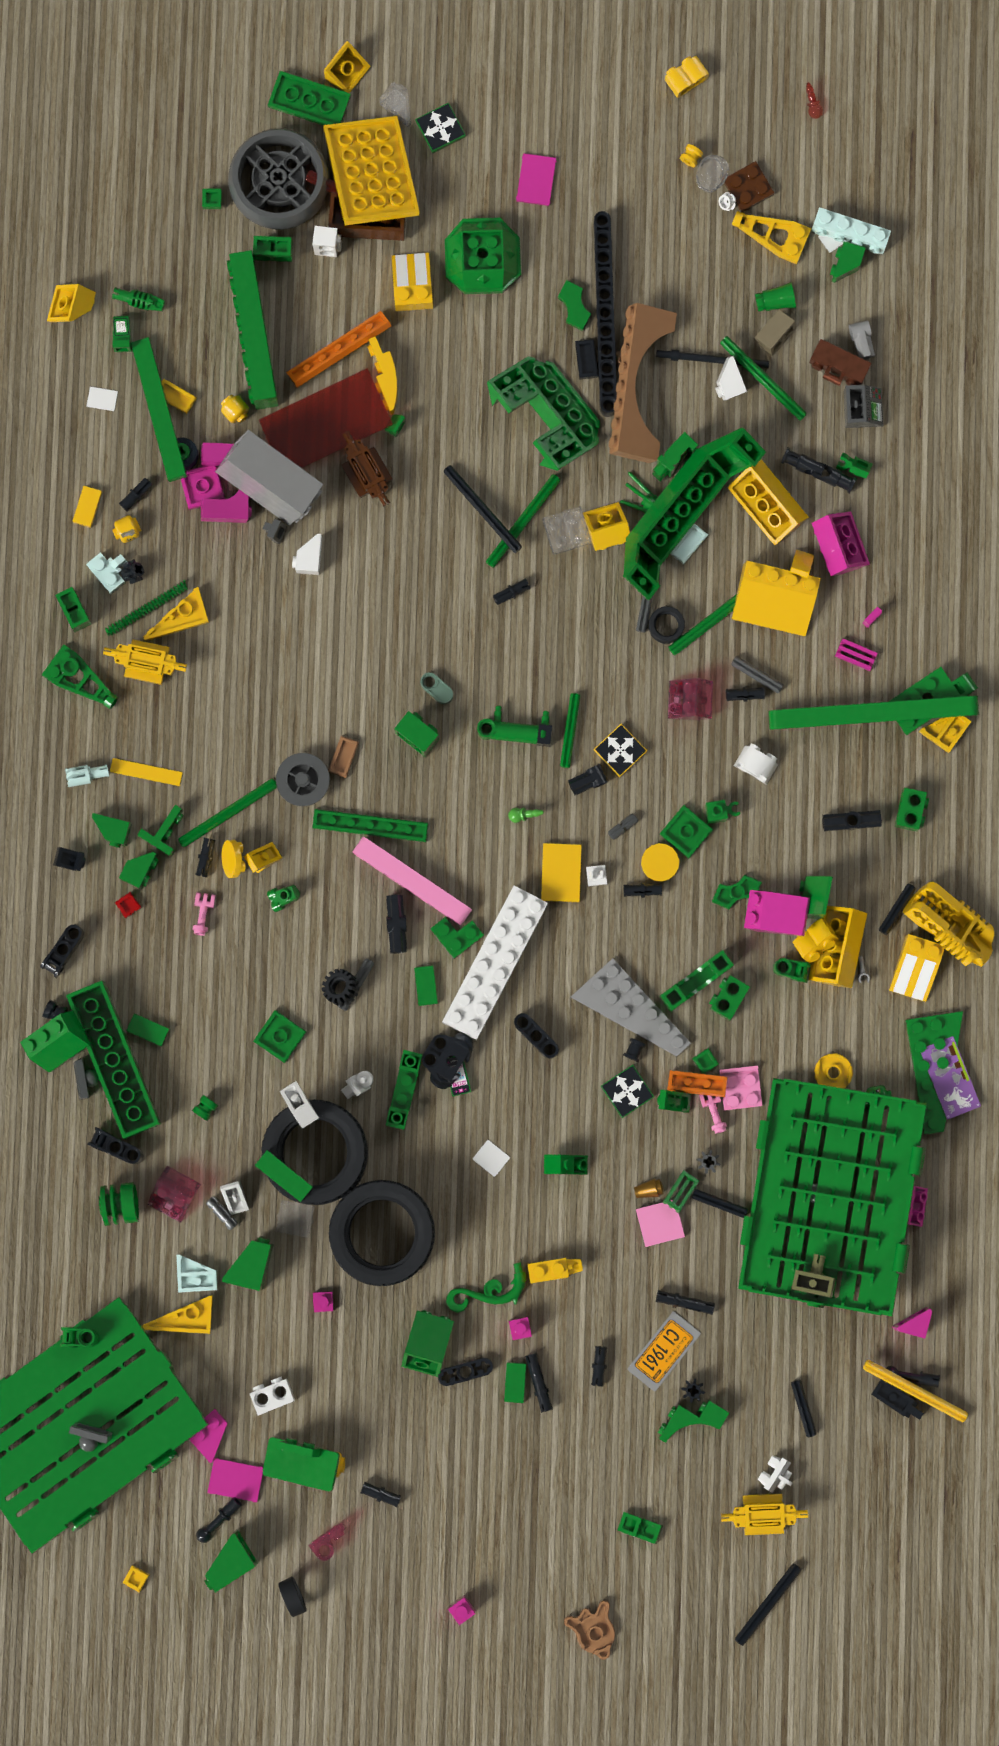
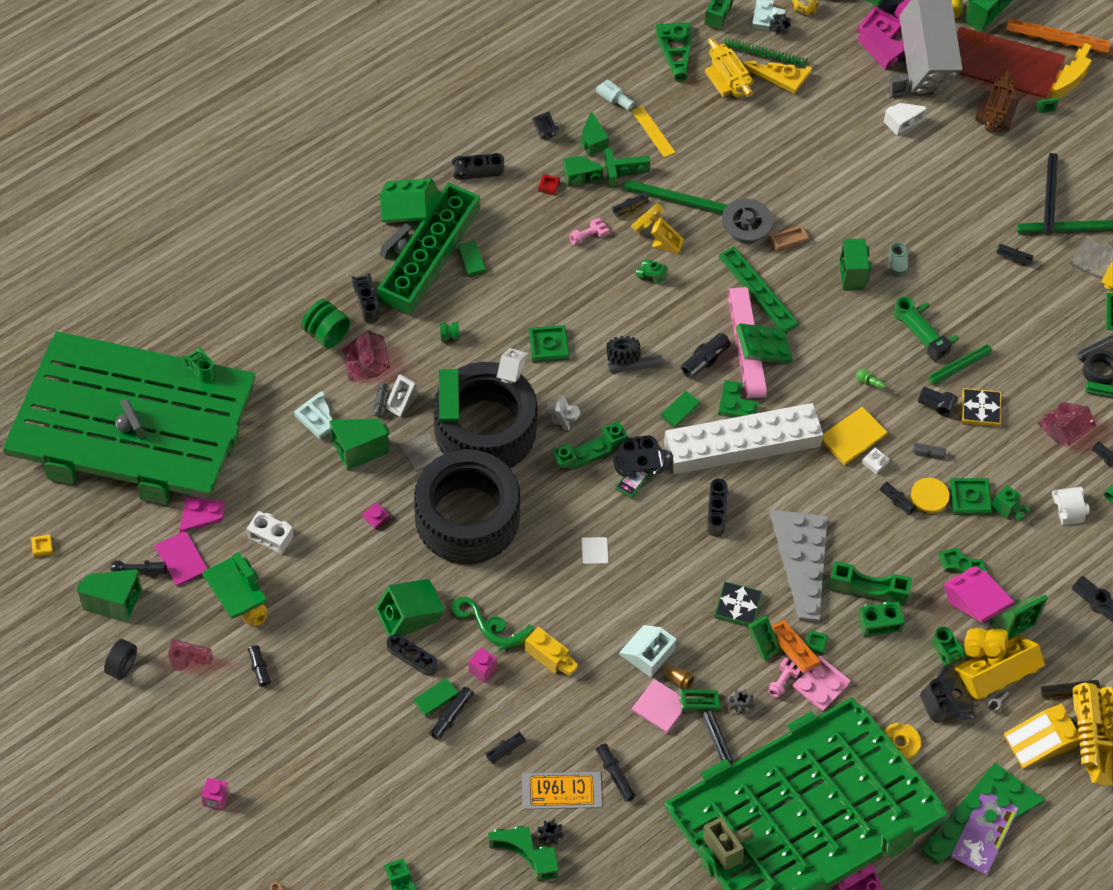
camera: 45 degrees right, 25 degrees down
(191, 1318) = (279, 435): yellow wing -> none
(428, 872) = (764, 343): none -> green plate
(566, 1164) = (640, 601): green slope -> none
(609, 1194) = (649, 649): none -> light aqua slope
(634, 1050) = (774, 583): black bush -> none
(848, 1008) = (939, 697): none -> black piece

